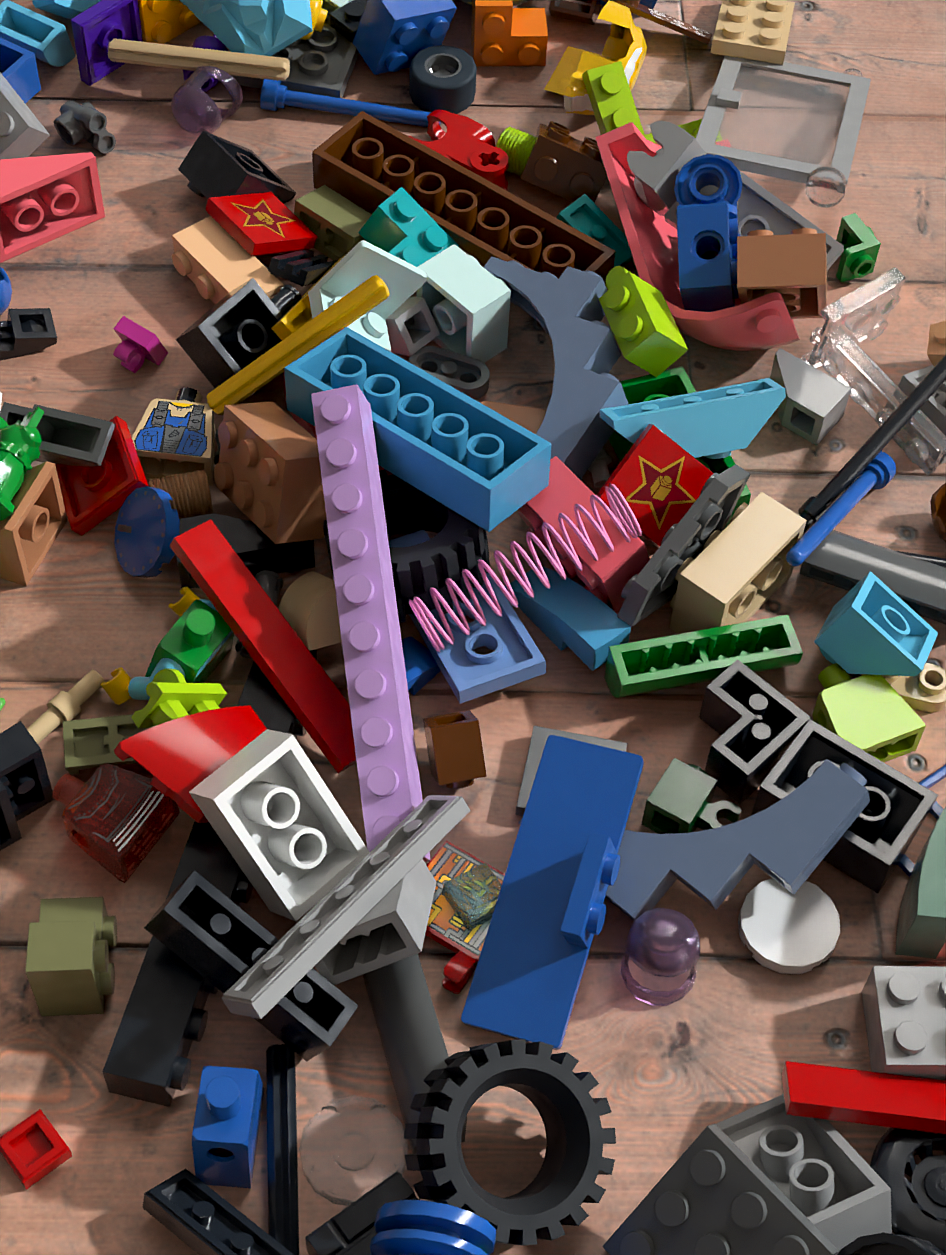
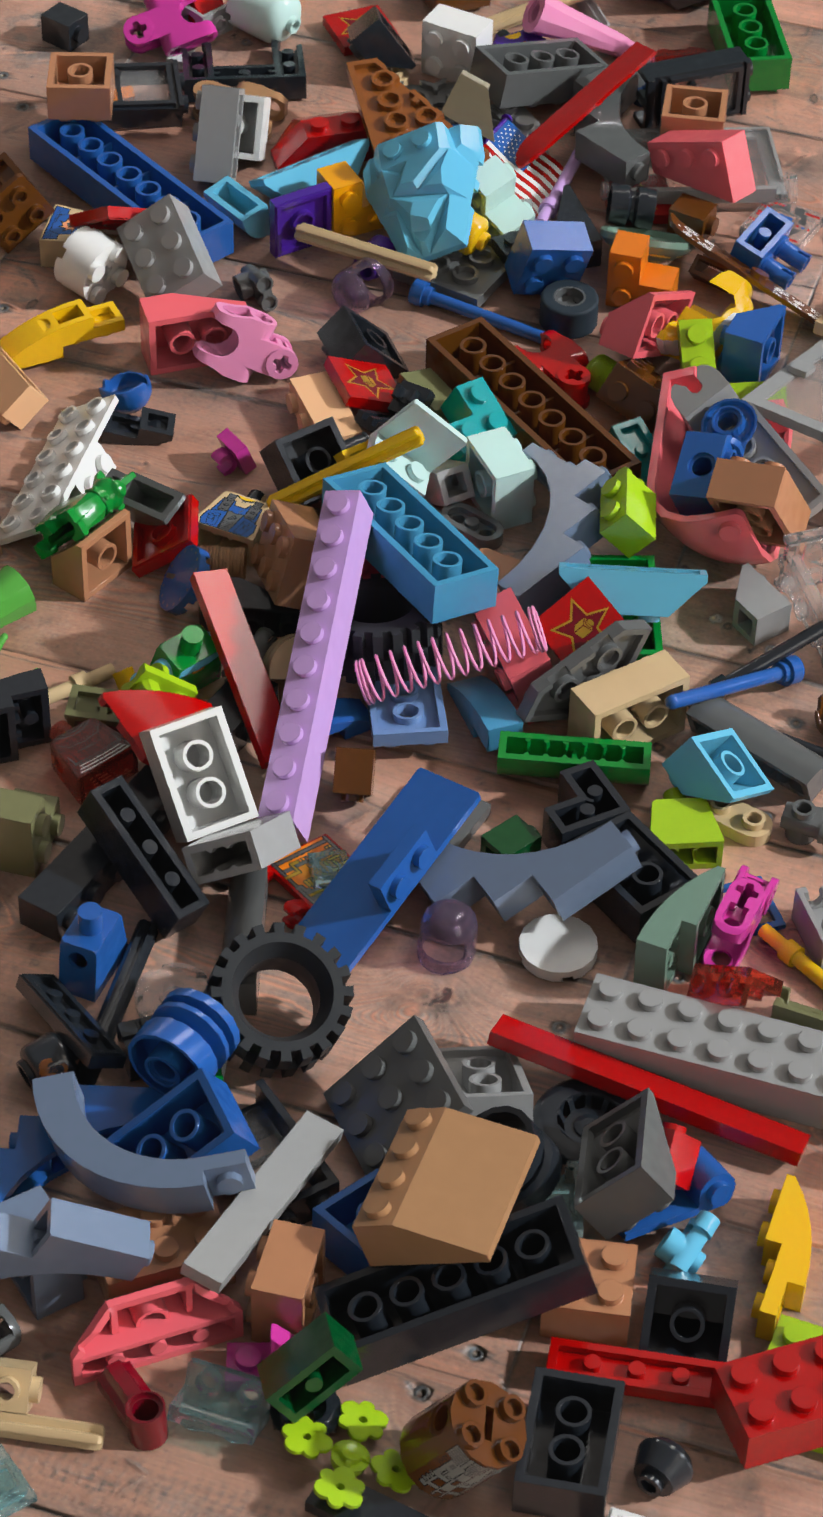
camera: 20 degrees right, 10 degrees down
(109, 204) = (249, 346): none -> bright pink piece
(323, 233) = (406, 393): none -> black tile
(344, 906) = (222, 826): light grey tile -> none
(539, 90) = (635, 325): none -> coral slope
(662, 80) = (752, 344): none -> blue slope

